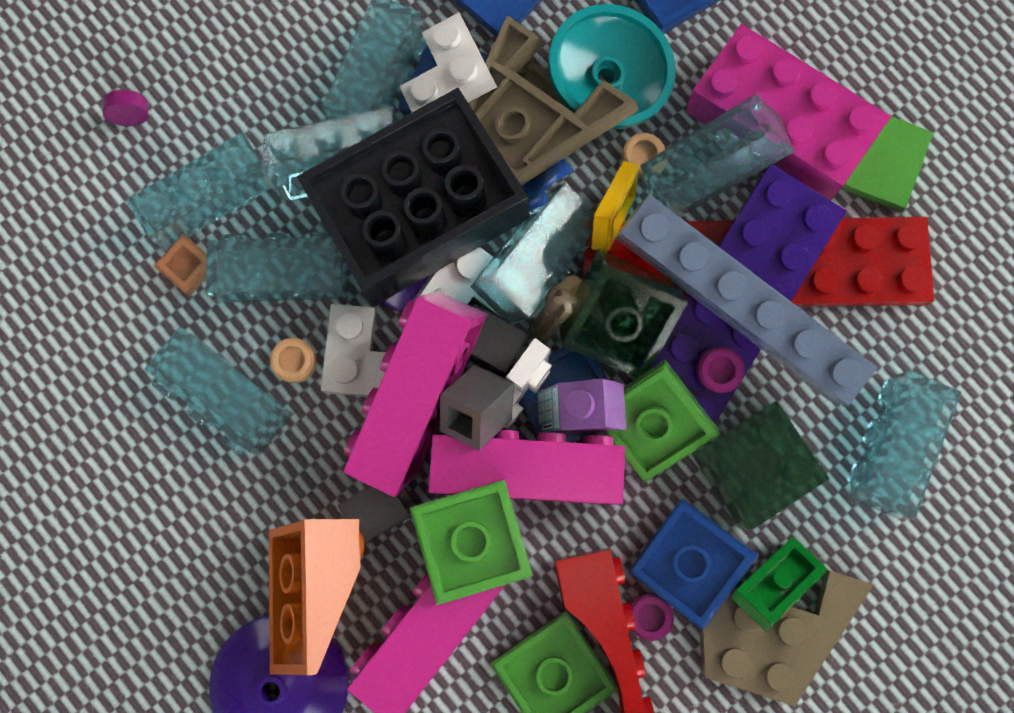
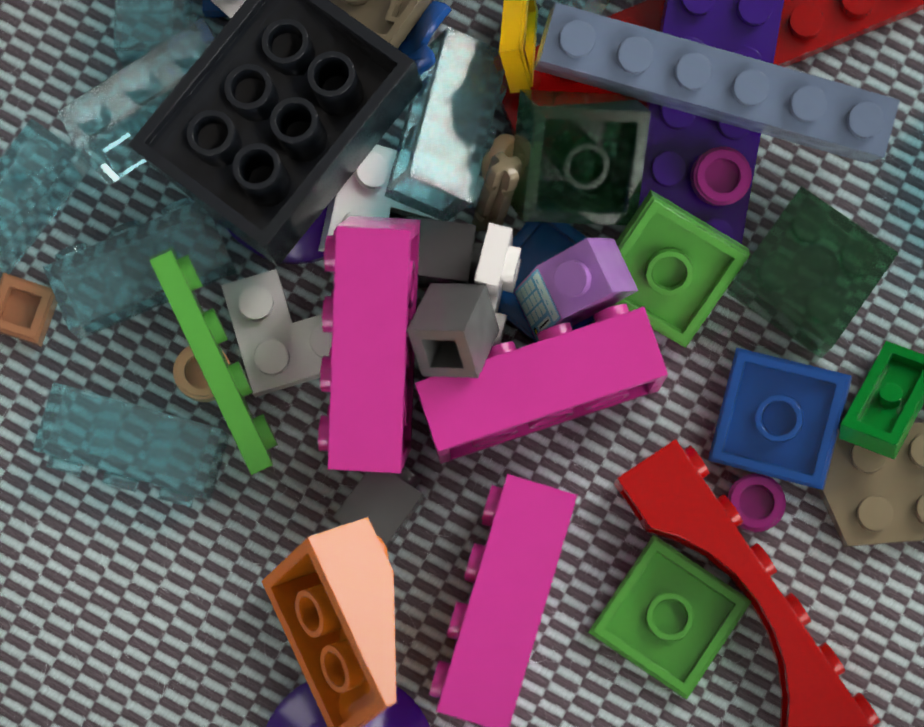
camera: 15 degrees left, 0 degrees up
(298, 335) = (204, 335): none -> bright green plate
(471, 542) = (510, 485): bright green tile -> none

